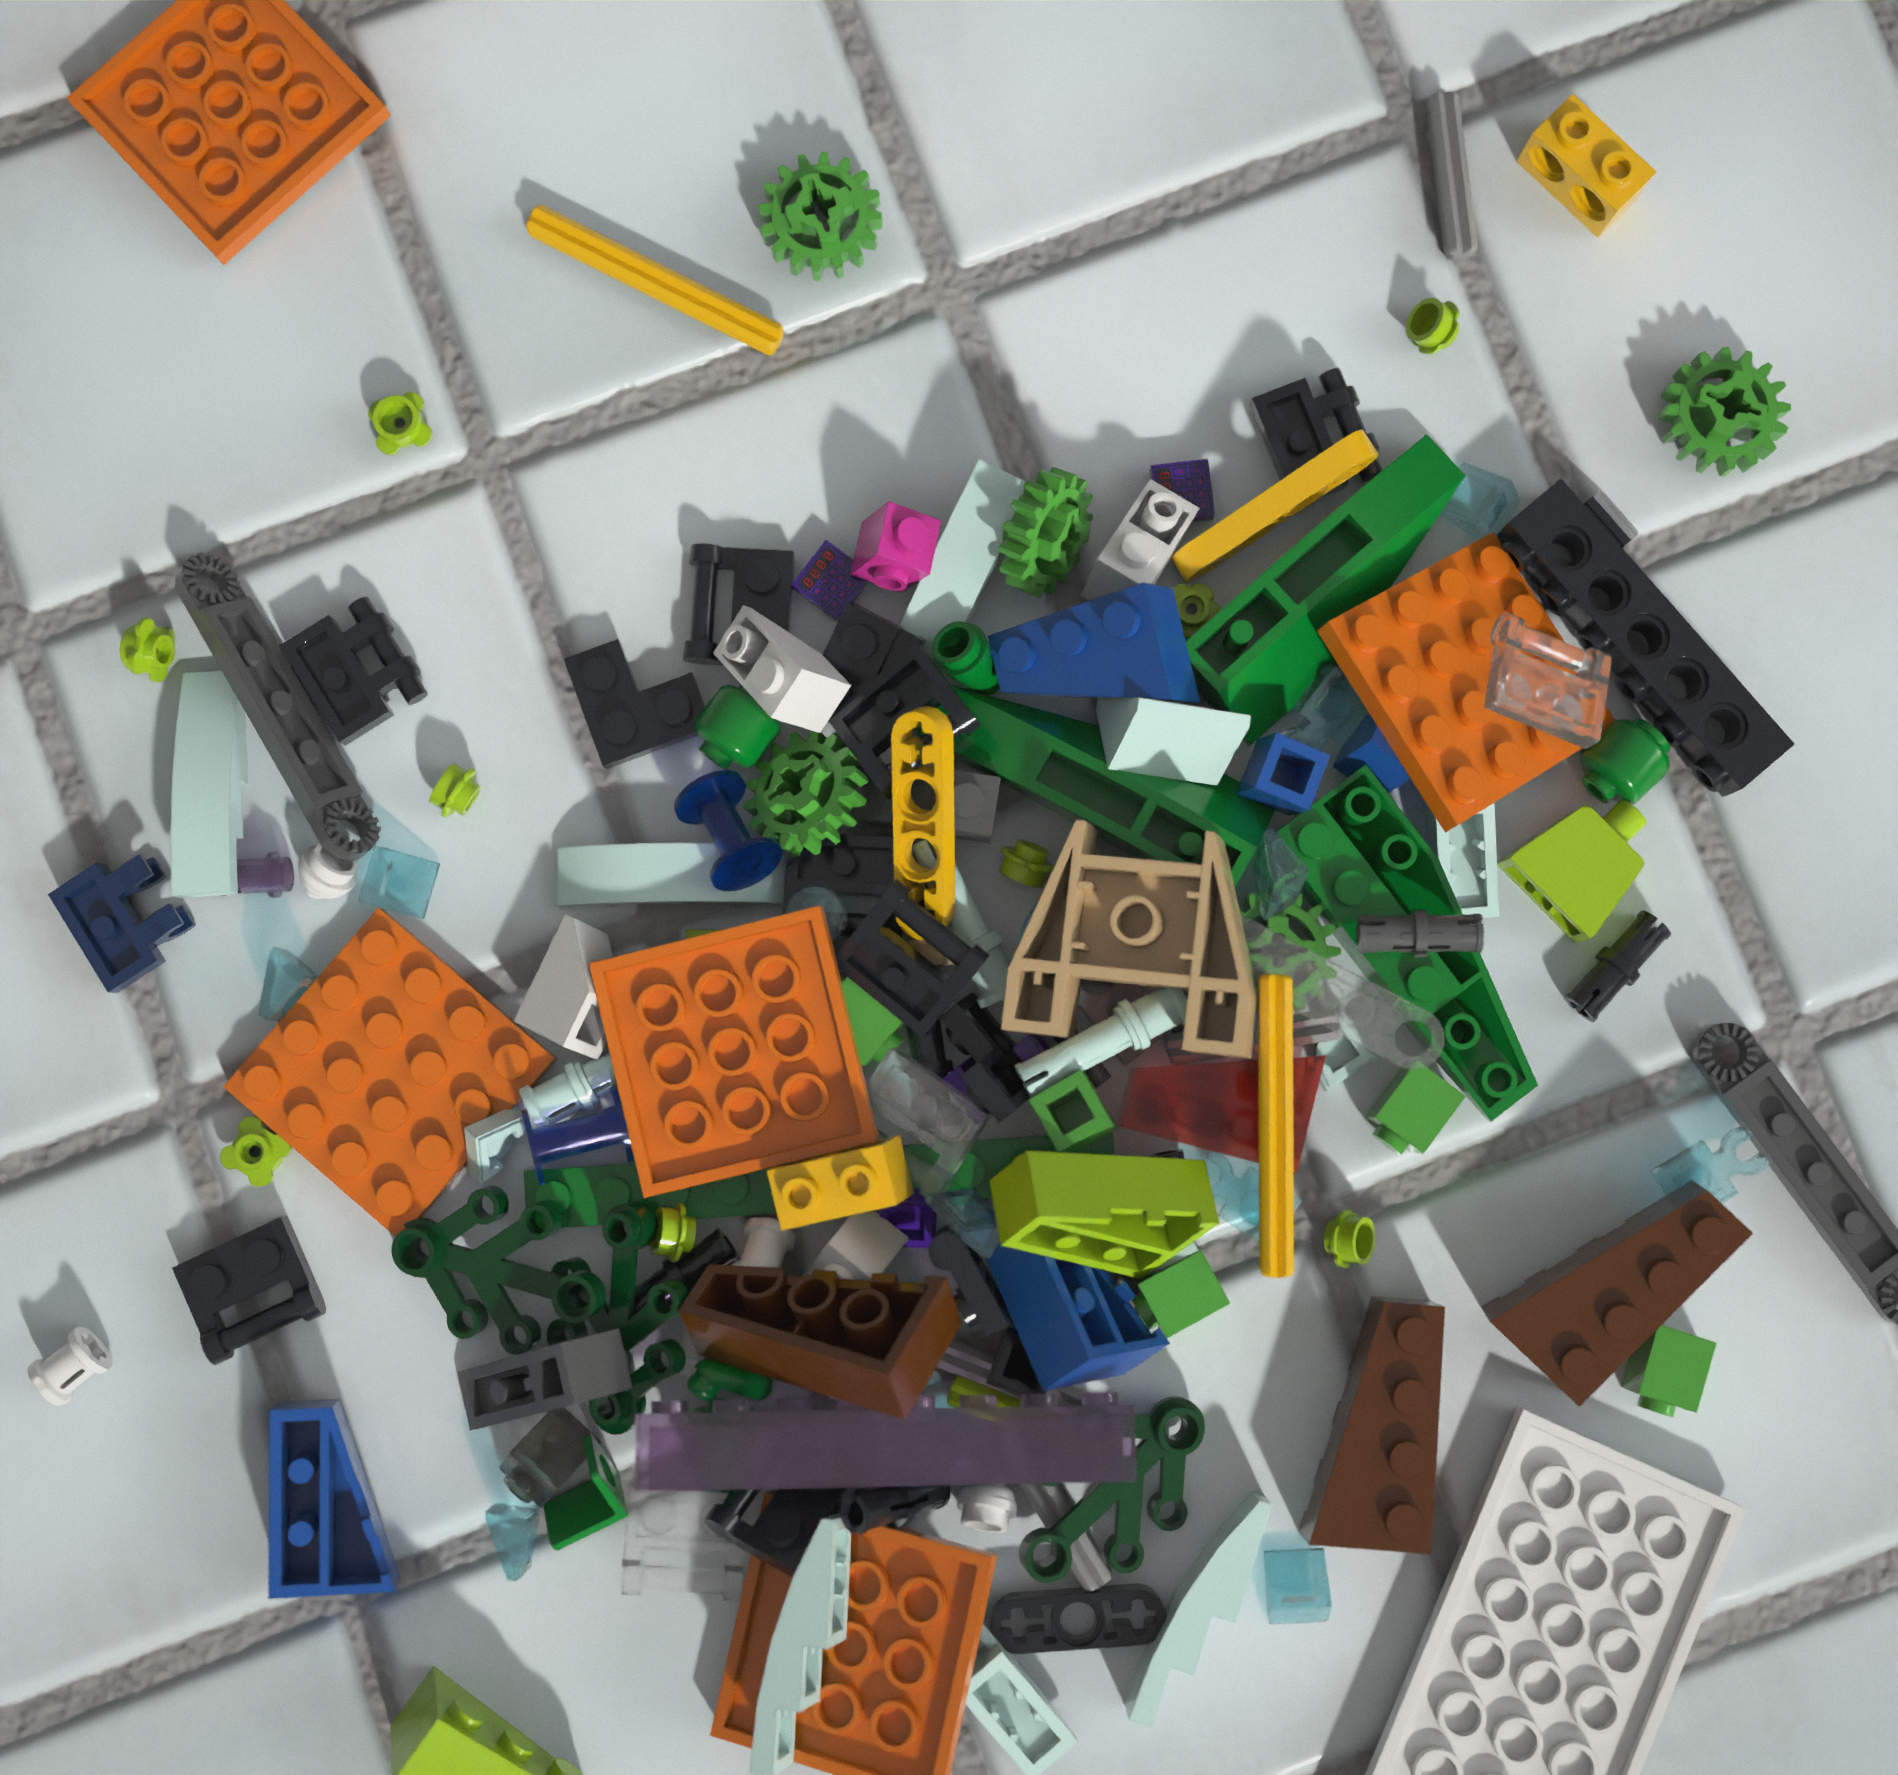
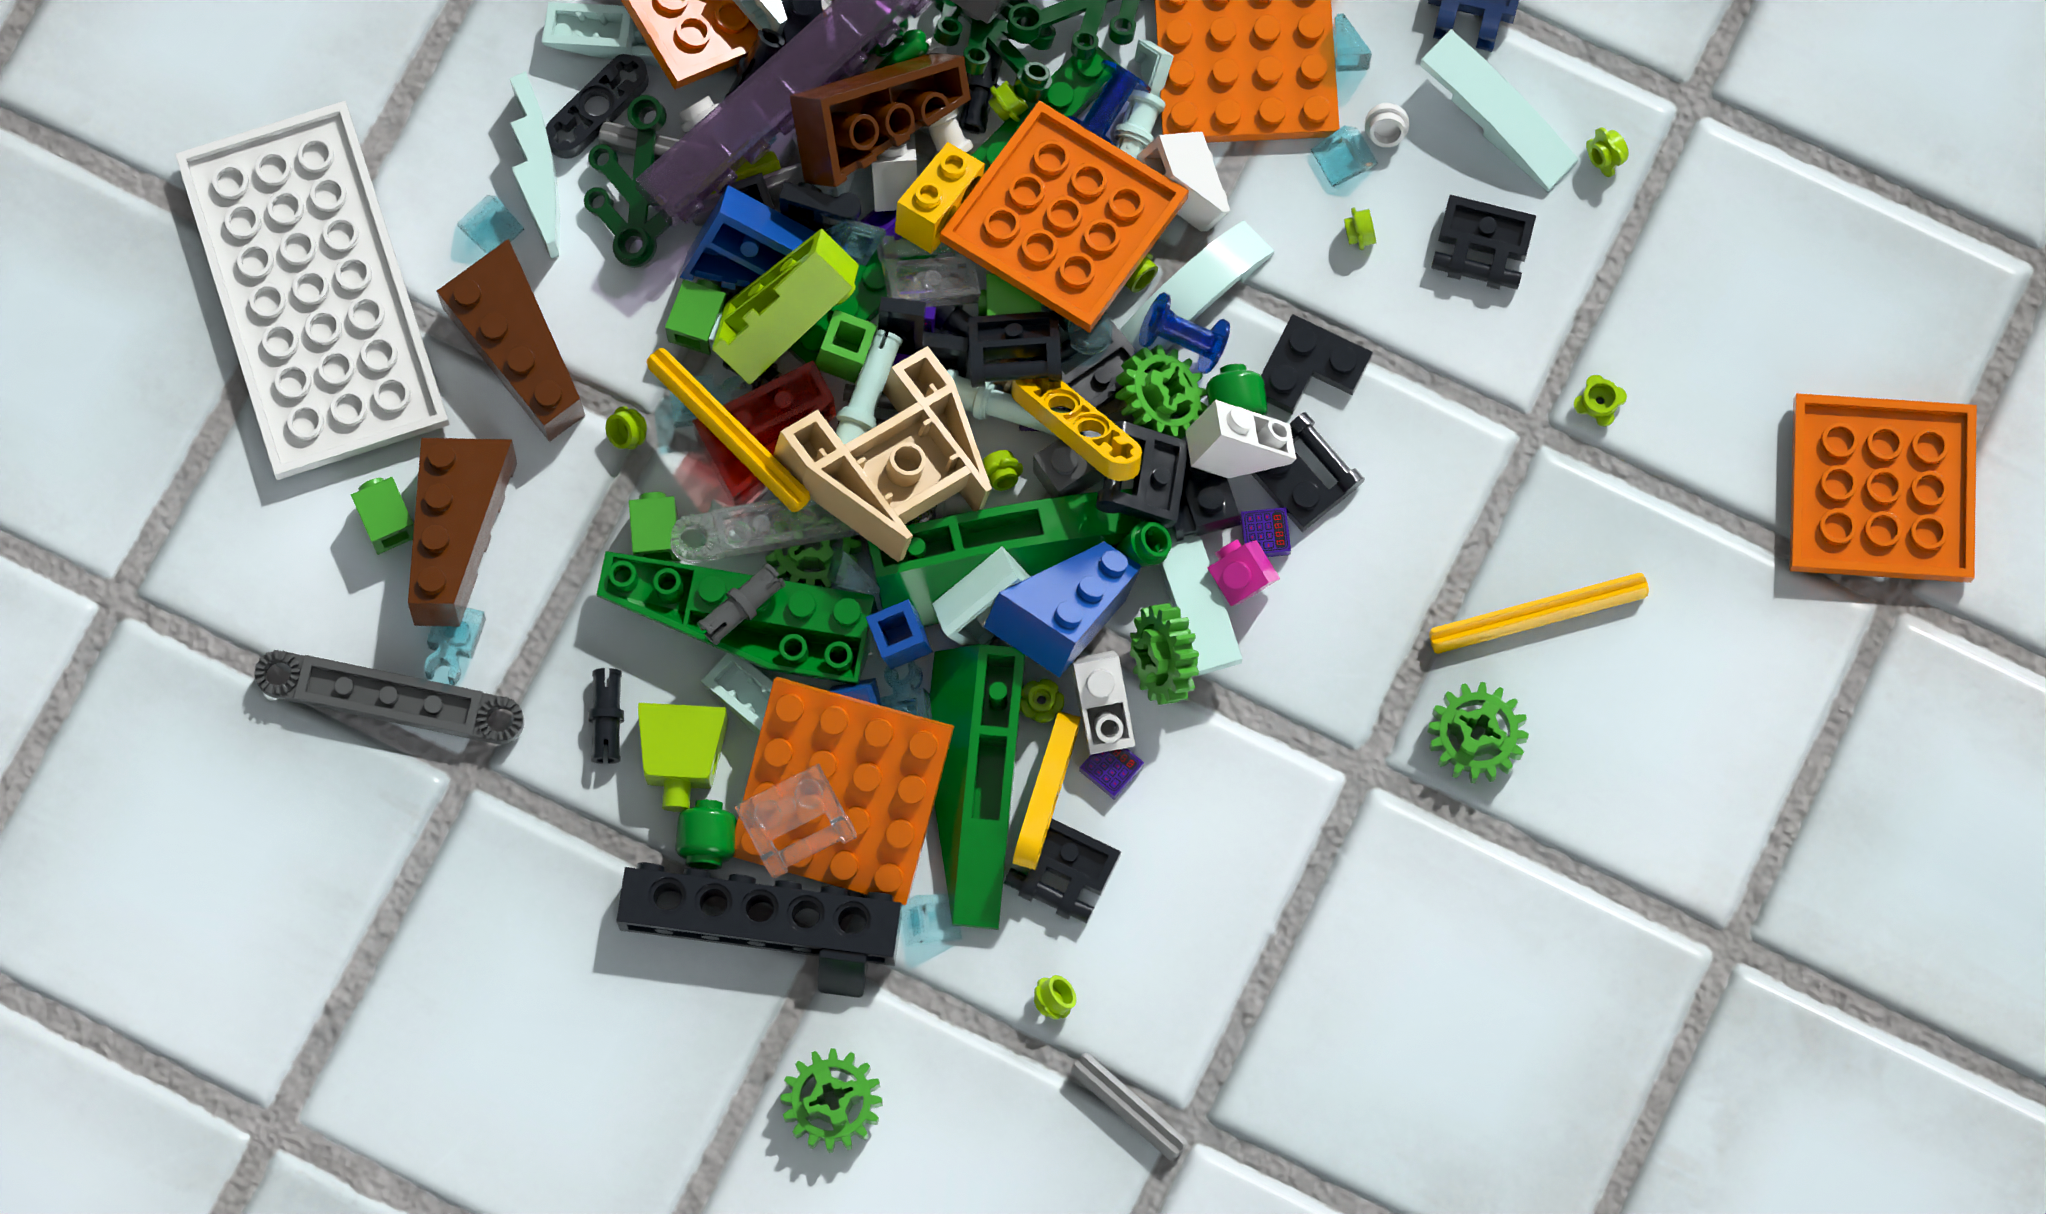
camera: 135 degrees right, 10 degrees down
(265, 875) = (1417, 94): clear purple pin -> none
(277, 707) = (1505, 184): dark grey plate -> none
(1585, 165) = (1051, 1176): yellow brick -> none

